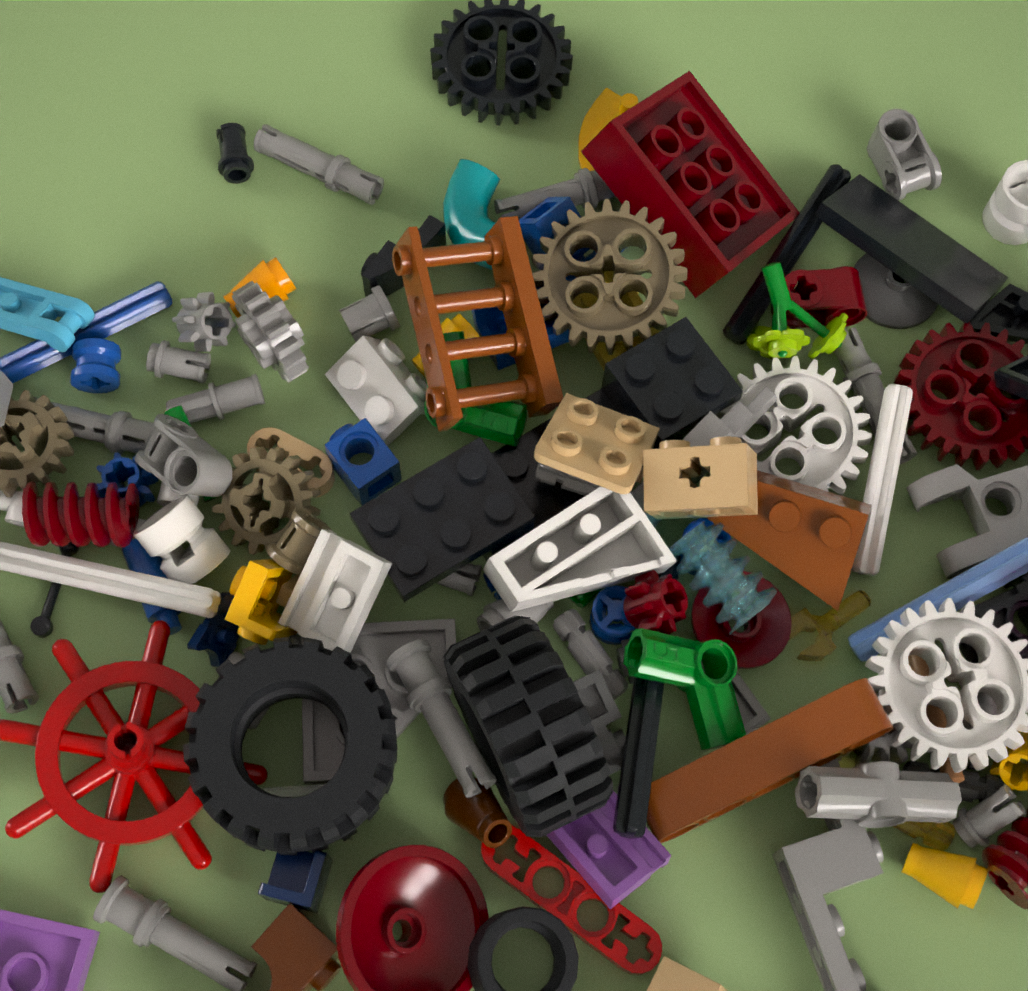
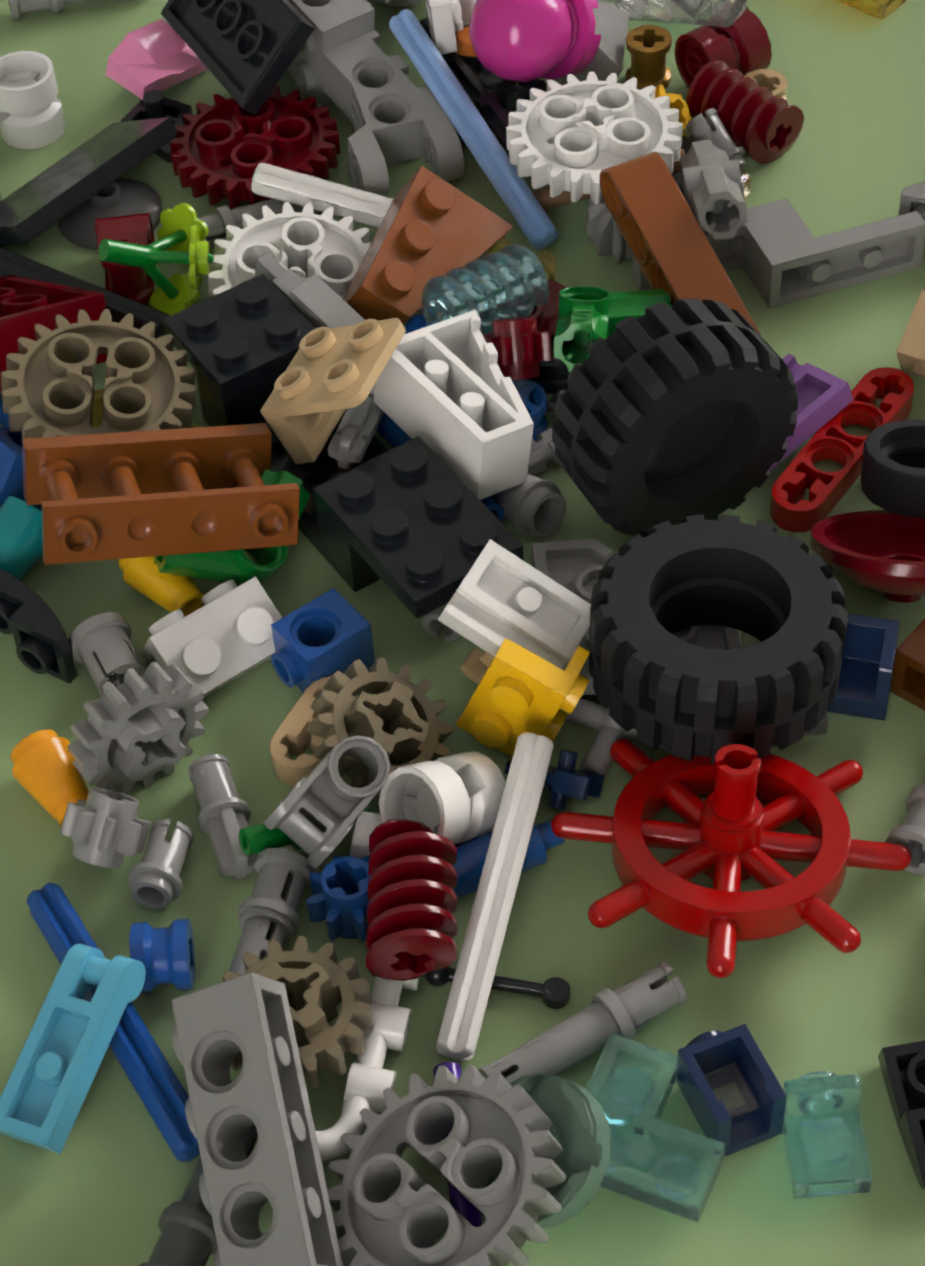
camera: 85 degrees left, 20 degrees down
(297, 541) = (440, 646): dark tan bush -> none
(430, 695) = (703, 497): light grey pin -> none
(477, 814) = (768, 496): reddish brown cone -> none
(726, 492) = (384, 253): tan brick -> none
(946, 874) = (777, 171): yellow cone -> none

